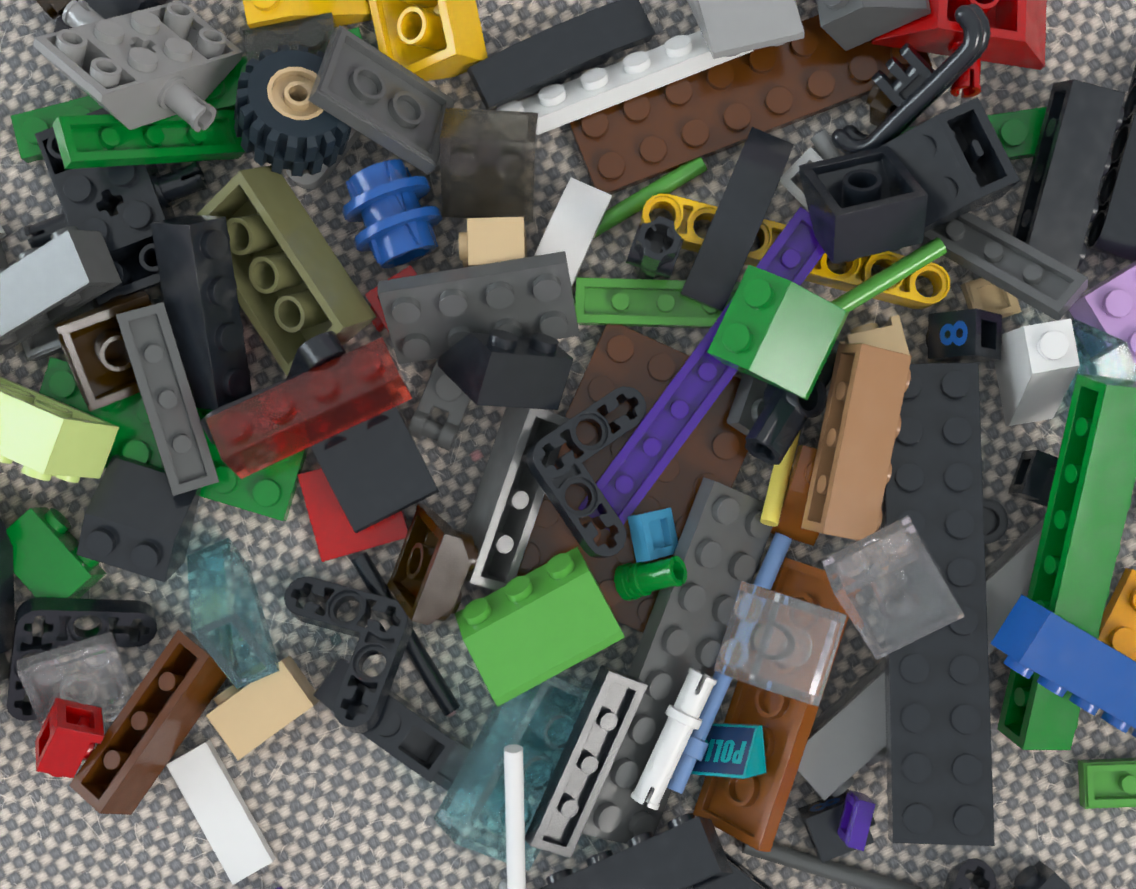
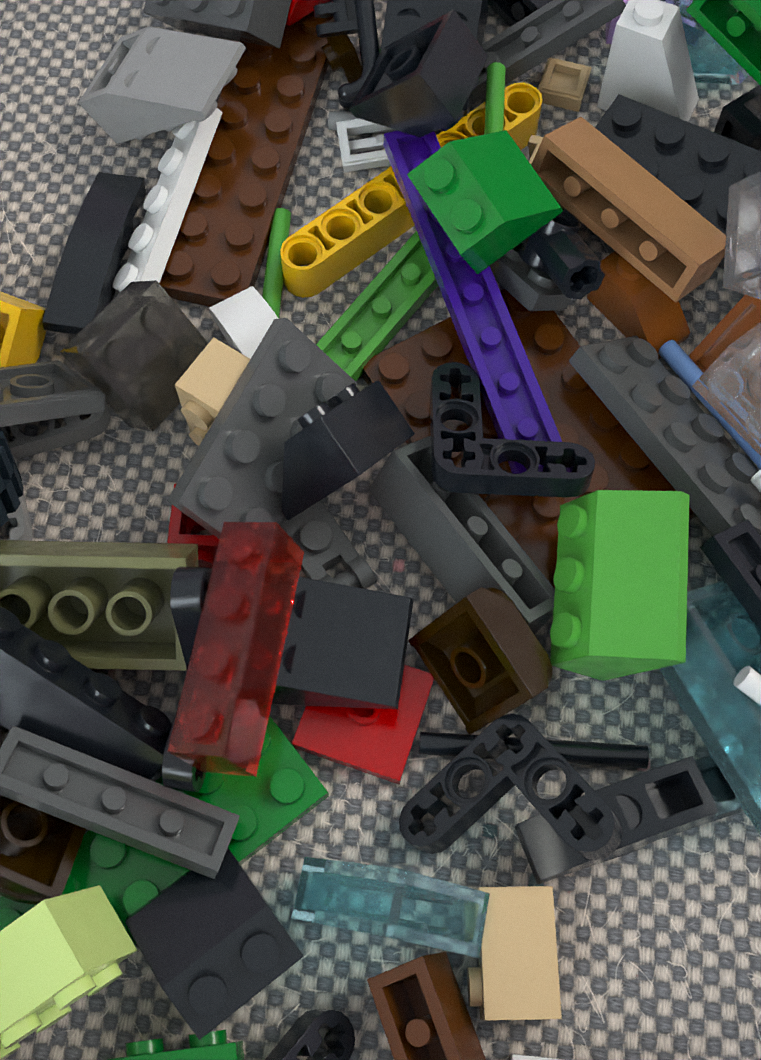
camera: 55 degrees left, 20 degrees down
(389, 206) = (112, 469): blue piece -> none
(640, 579) = (636, 457): green pin -> none
(653, 534) = (595, 434): dark azure plate -> none
(655, 249) = (330, 259): black piece -> none
(737, 219) = (360, 204): black slope -> none
(777, 487) = (620, 317): light yellow bar -> none
(964, 336) = (583, 96): black brick -> none

